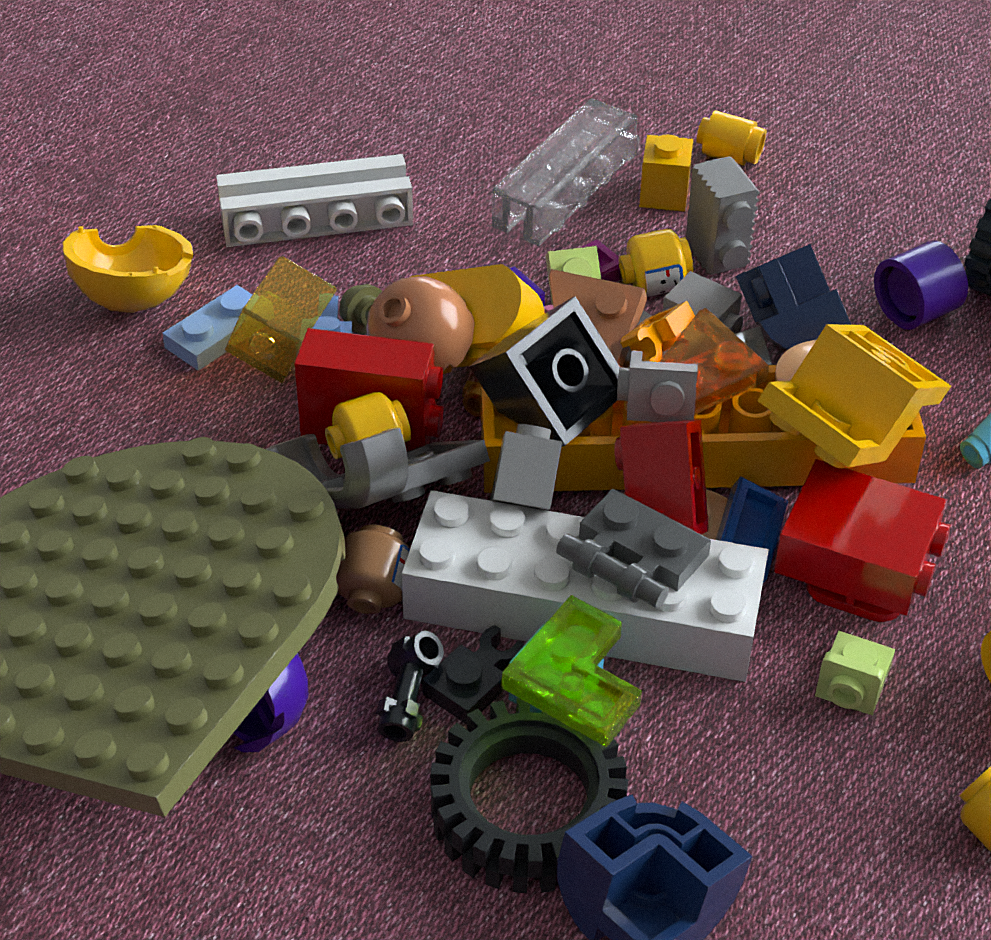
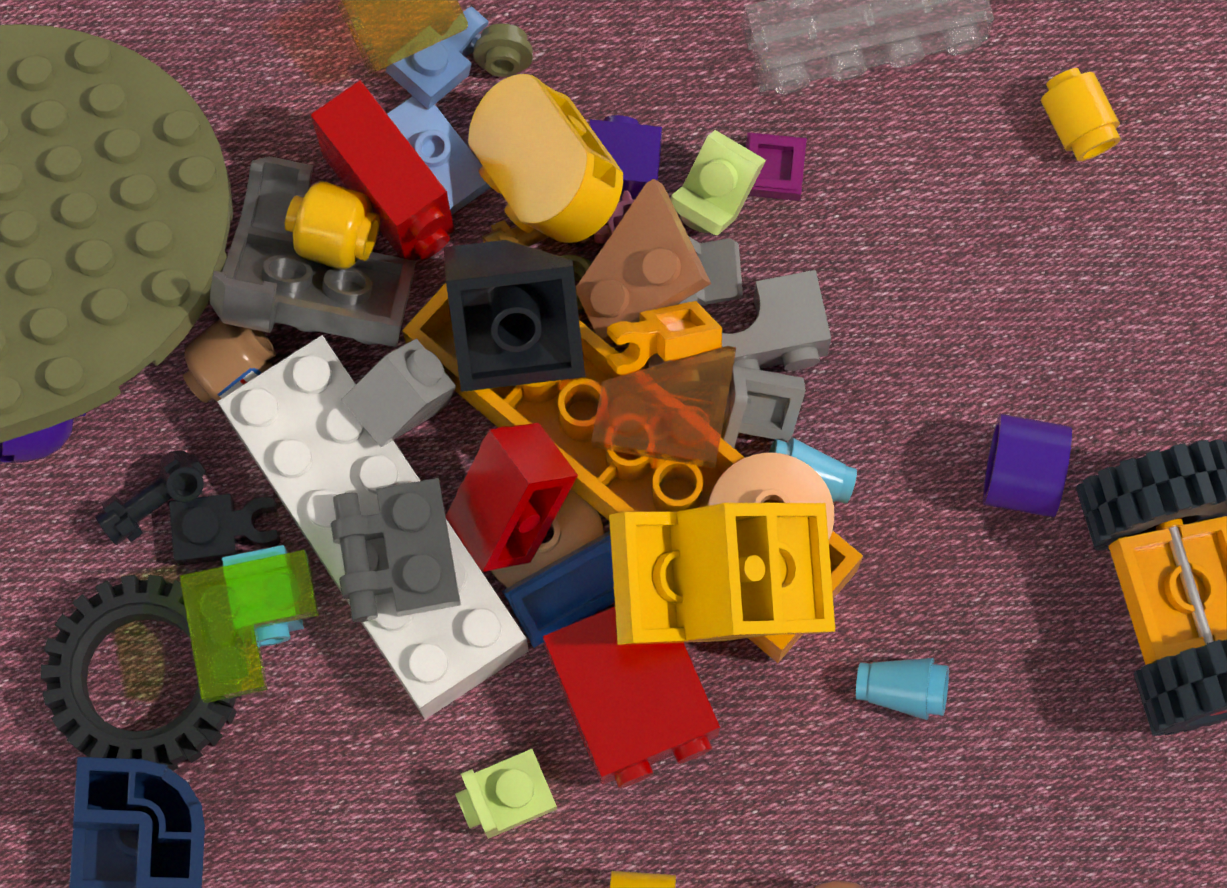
camera: 45 degrees right, 30 degrees up
(424, 312) = (479, 145): nougat cylinder -> none
(656, 261) = (817, 222): yellow head -> none
(657, 390) = (568, 414): light grey bracket -> none
(665, 172) = (956, 110): yellow brick -> none
(721, 215) = (923, 224): light grey brick -> none
(791, 298) = (869, 391): dark blue brick -> none

